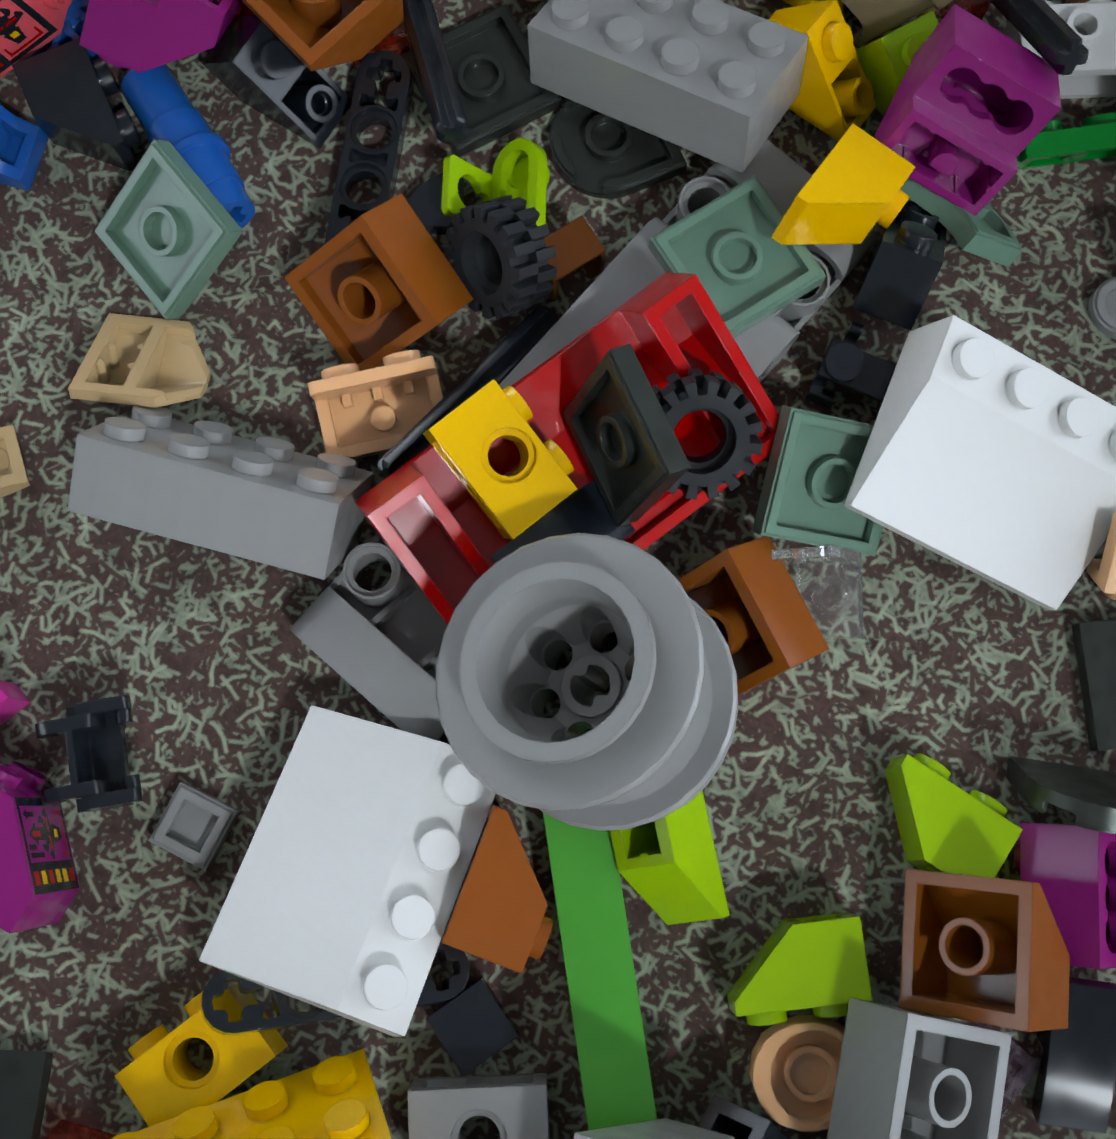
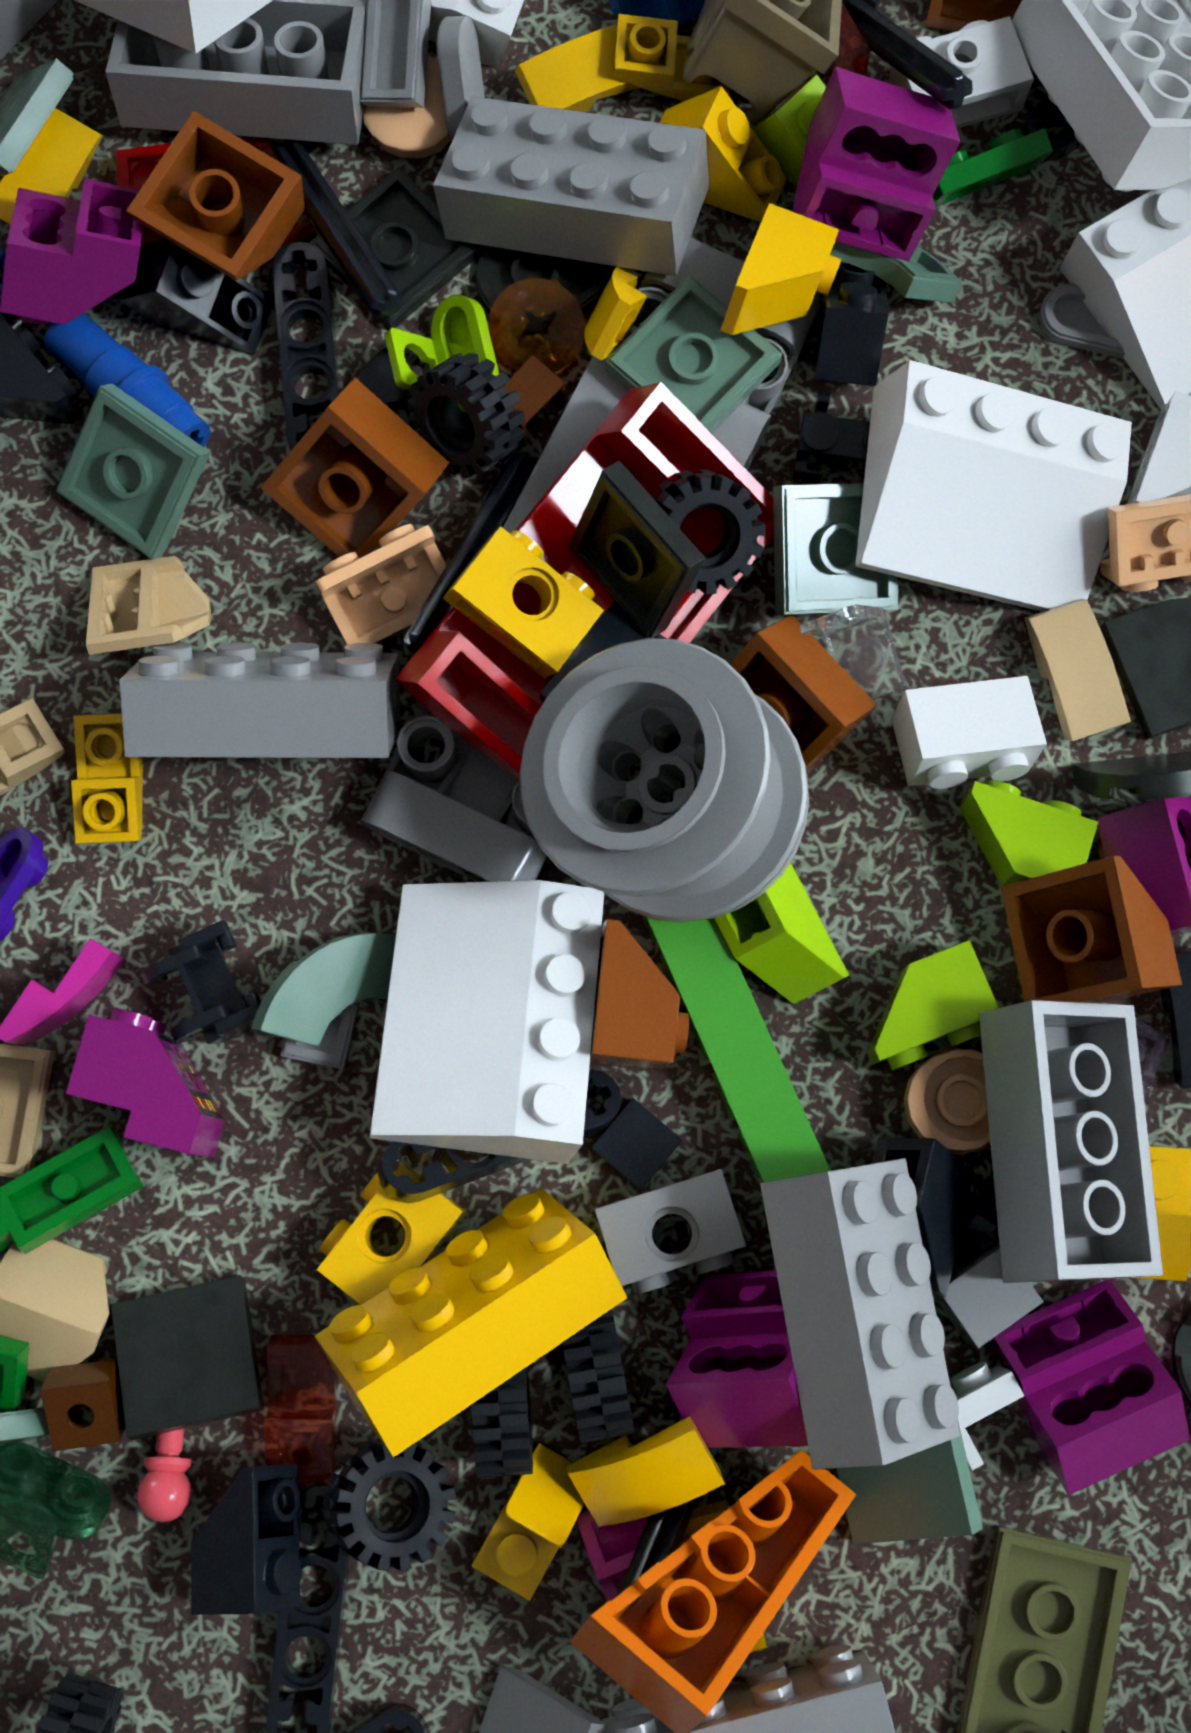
camera: 15 degrees left, 0 degrees up
(54, 541) = (107, 782): none -> yellow slope
(205, 784) = (324, 984): none -> sand green tile
(607, 161) = (540, 296): none -> clear orange gear
(672, 194) = (614, 313): none -> yellow slope
(914, 701) = (968, 732): none -> white brick
(1040, 663) = (1078, 668): none -> tan slope

